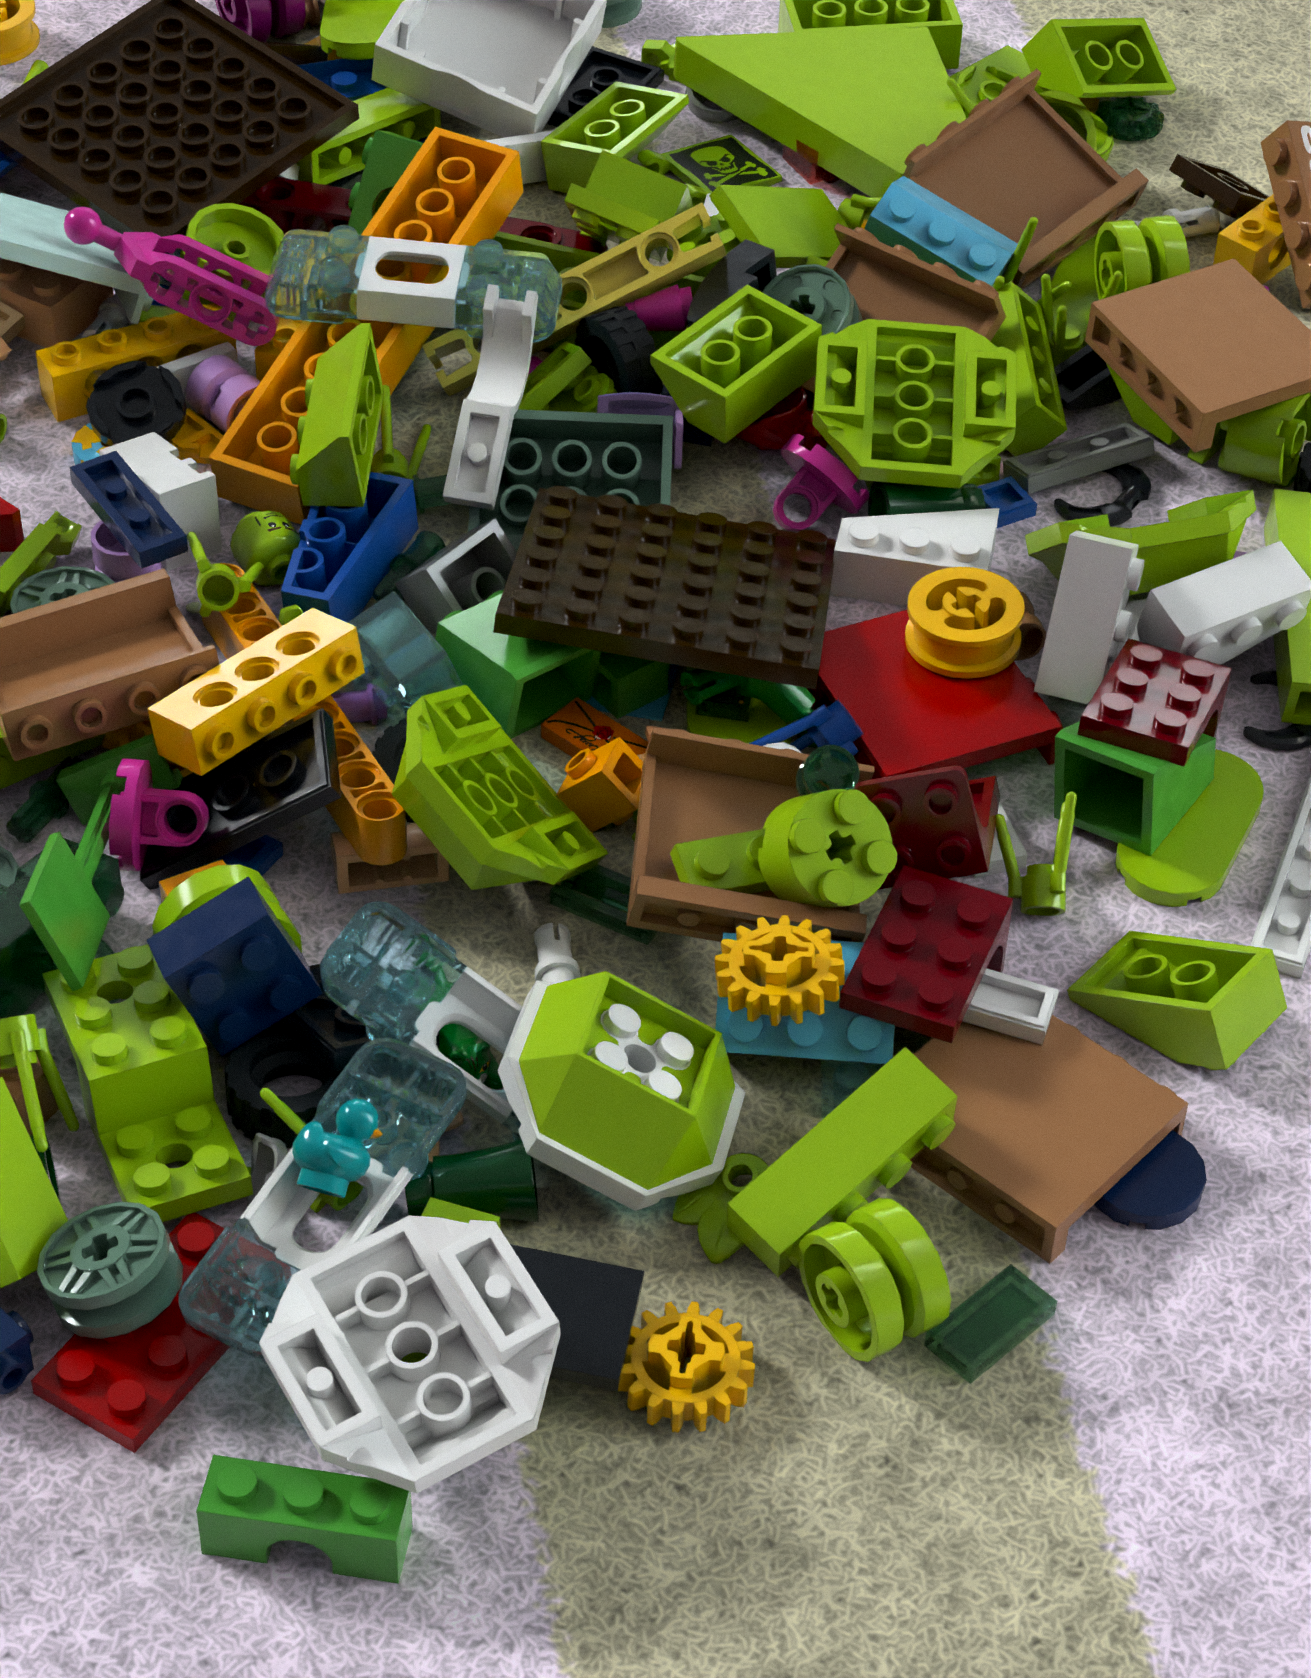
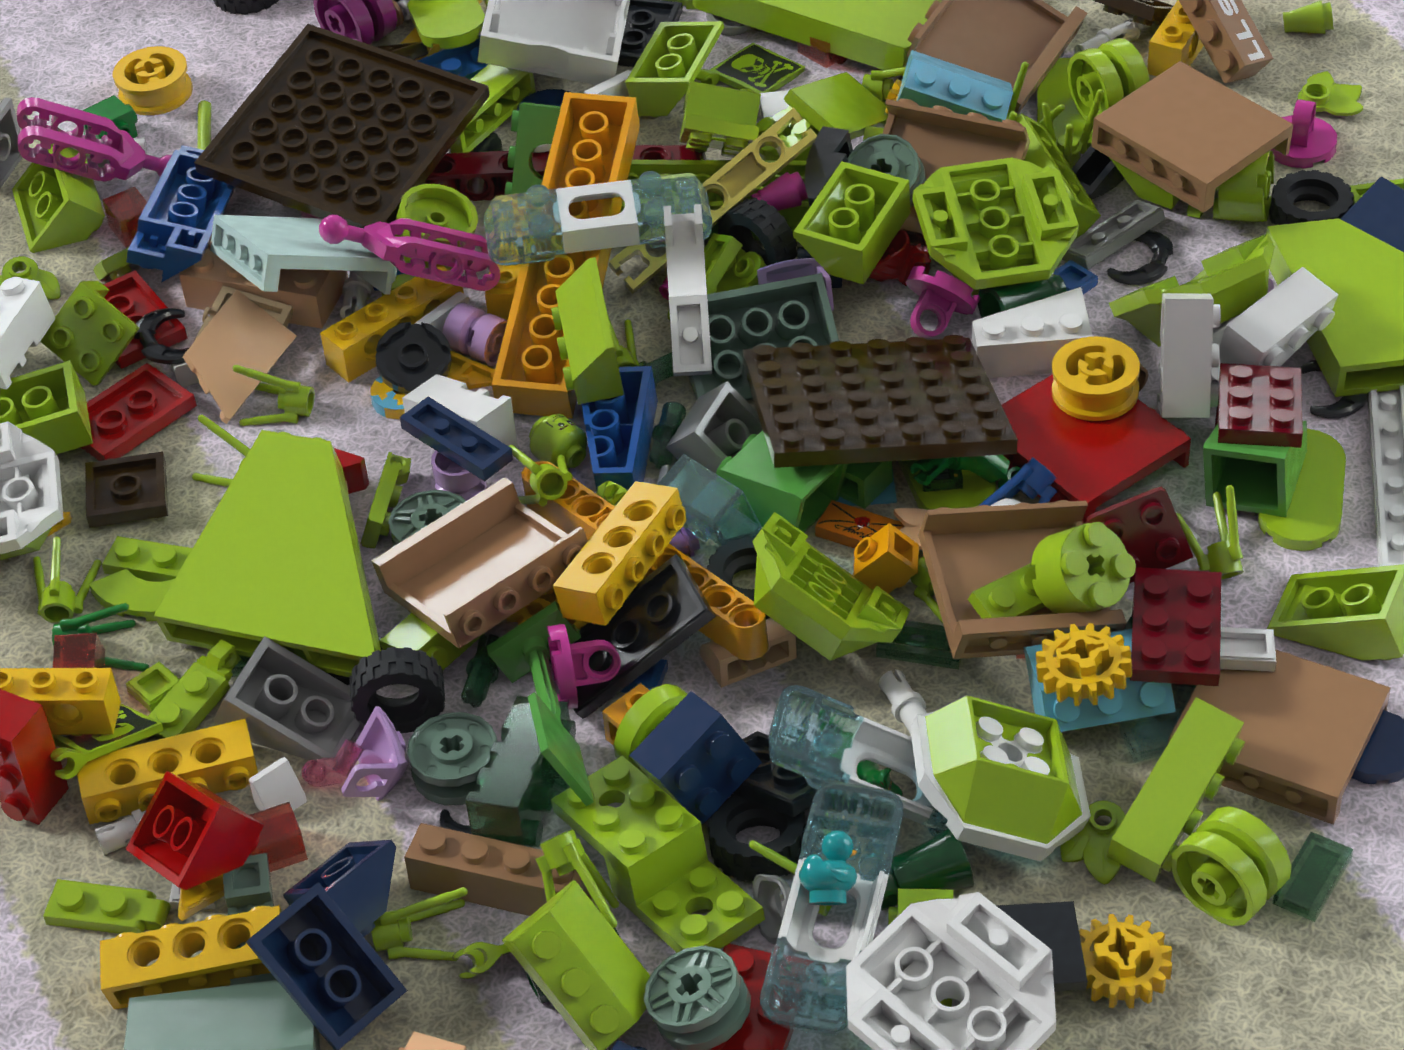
camera: 10 degrees left, 0 degrees up
(838, 770) = (1068, 510): clear green wheel -> none

